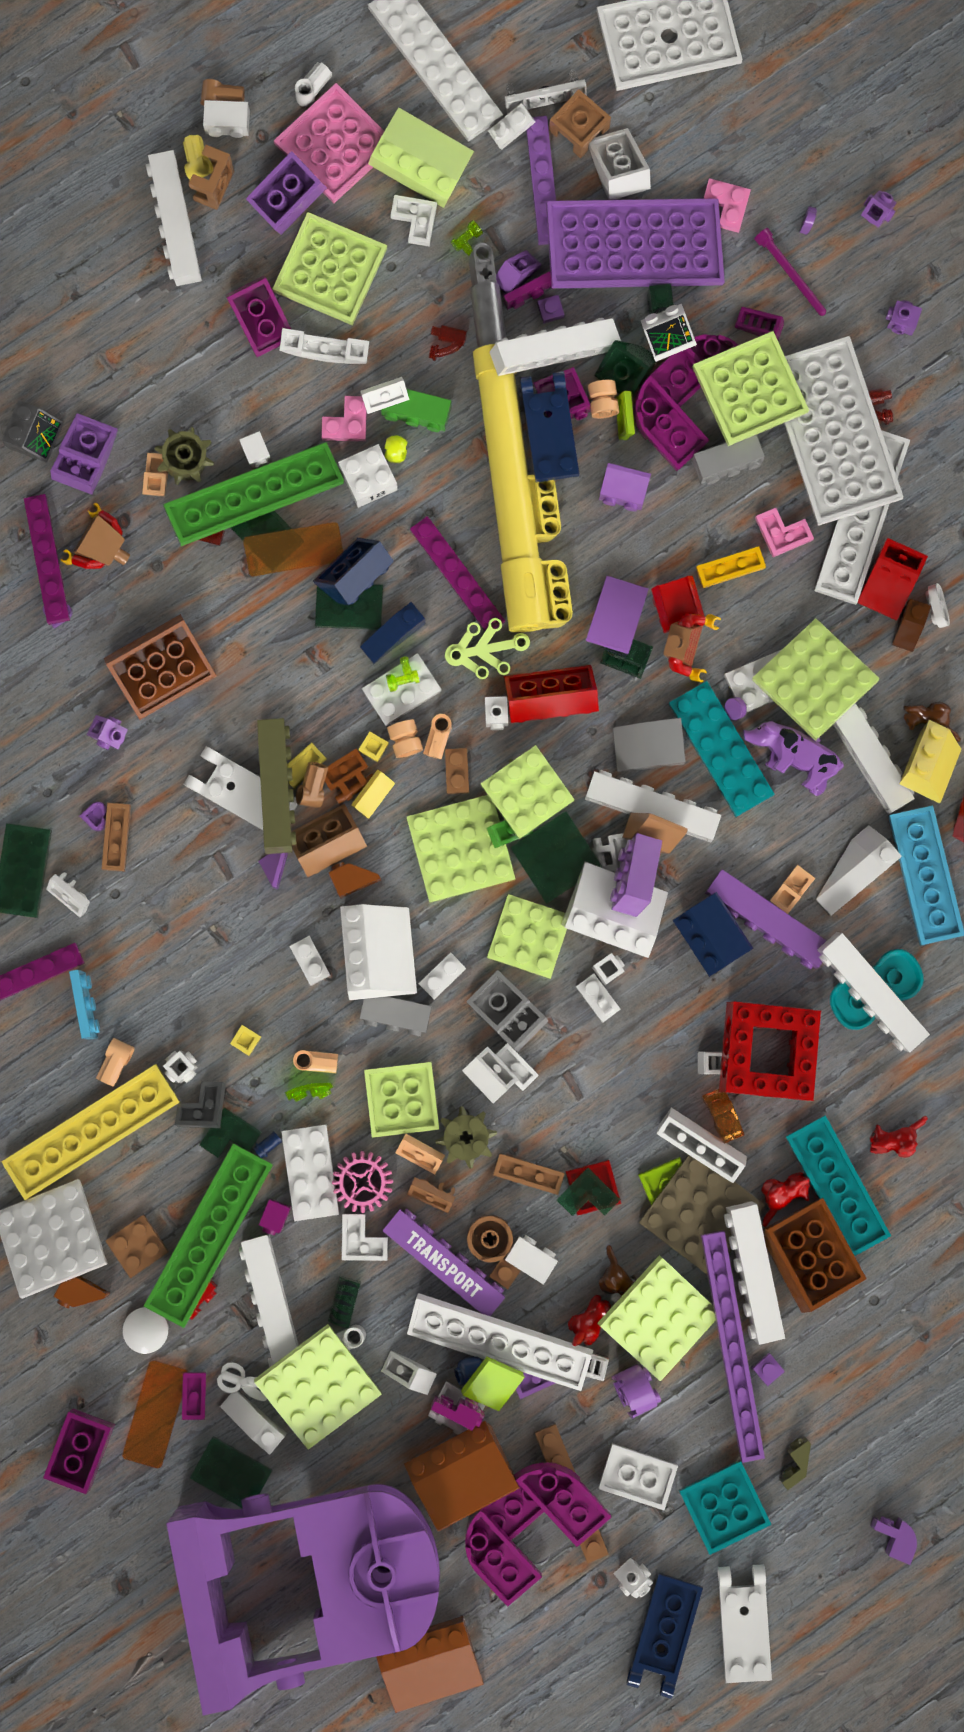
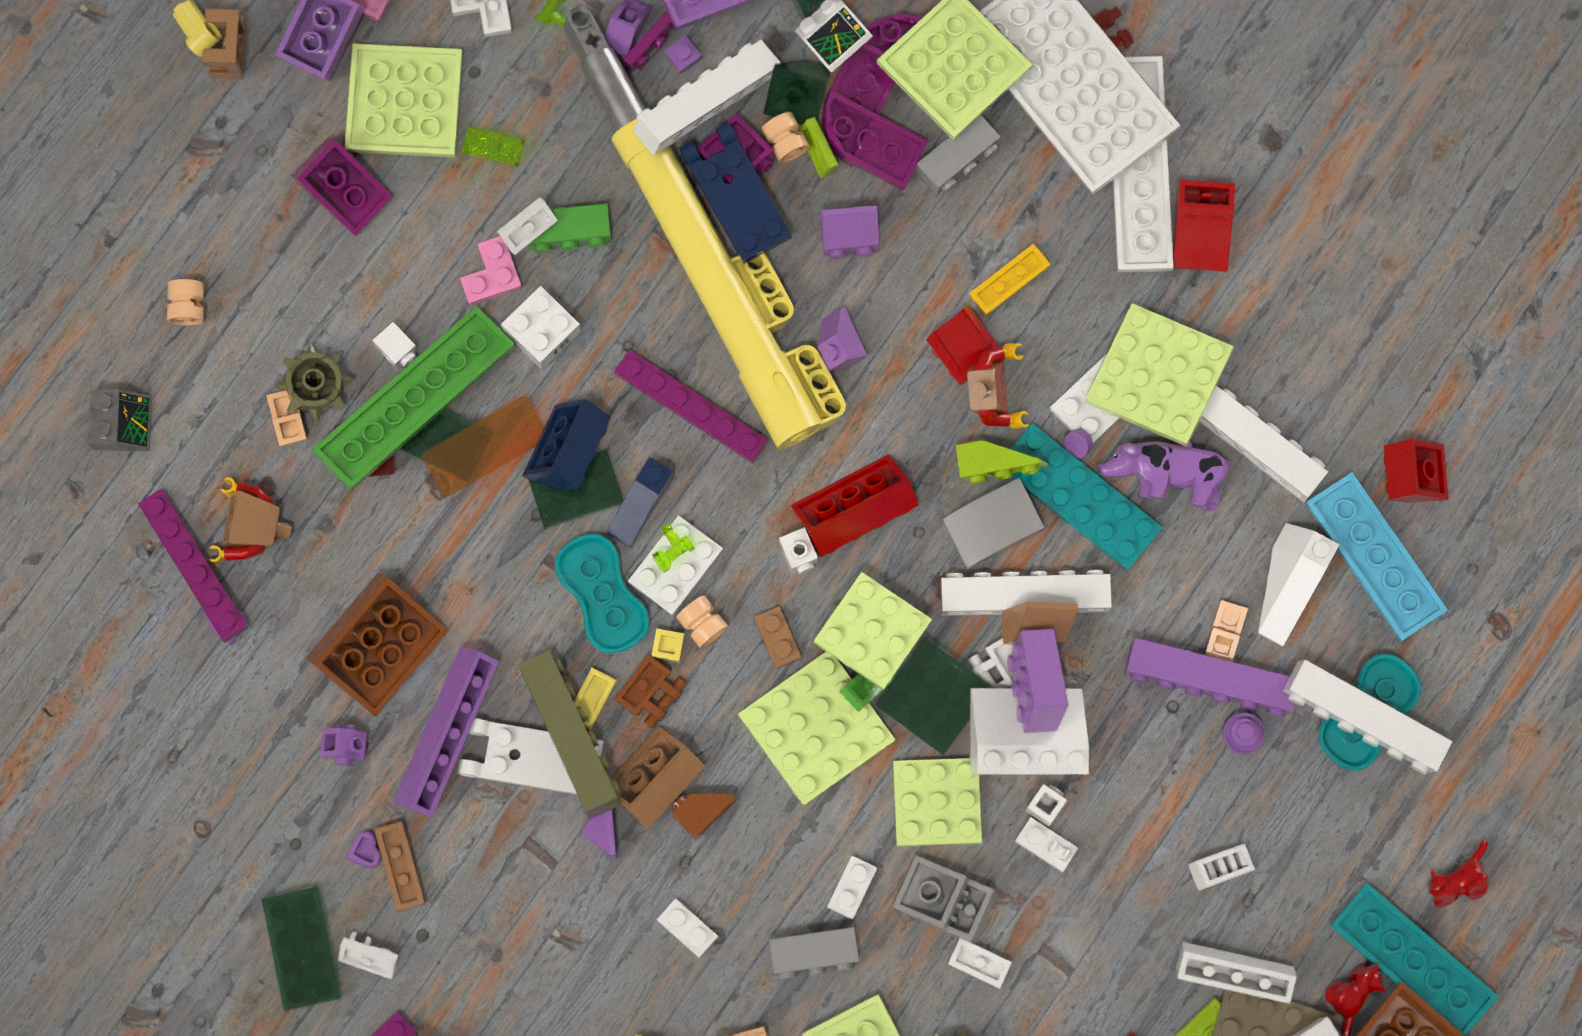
camera: 20 degrees left, 5 degrees down
(83, 454) = (190, 424): medium lavender slope -> none
(112, 362) = (185, 300): none -> light nougat wheel
(174, 218) = (196, 107): white brick -> none
(186, 750) = (446, 731): none -> medium lavender brick
(312, 791) = (614, 724): medium nougat piece -> none
(324, 349) = (433, 196): white slope -> none
(340, 706) = (593, 576): none -> teal plate
(373, 794) = (688, 701): light yellow tile -> none
(378, 951) = (765, 885): white slope -> none
(383, 327) = (493, 146): none -> clear neon green slope
(395, 449) = (562, 284): neon yellow piece -> none
(437, 739) = (740, 608): light nougat piece -> none
(450, 335) = (575, 127): clear red plant -> none
(483, 649) = (755, 482): yellowish green plant -> none
(490, 1075) = (954, 983): white brick -> none
(585, 567) = (839, 341): none -> medium lavender slope
(617, 614) = (898, 384): medium lavender slope -> none
(631, 663) = (926, 427): clear green brick -> none
(659, 695) = (986, 460): none -> lime slope
(712, 934) = (1153, 718): dark blue slope -> none
(724, 1115) = (1248, 928): clear orange slope -> none
(737, 1049) = (1234, 844): red brick -> none
(776, 970) = (1243, 733): none -> medium lavender plate
(782, 538) = (1052, 224): bright pink plate -> none
(911, 625) = (1246, 270): reddish brown slope -> none
(931, 762) = (1331, 421): light yellow slope -> none
(936, 599) = (1263, 229): white plate -> none
(936, 712) = (1314, 366): reddish brown animal -> none

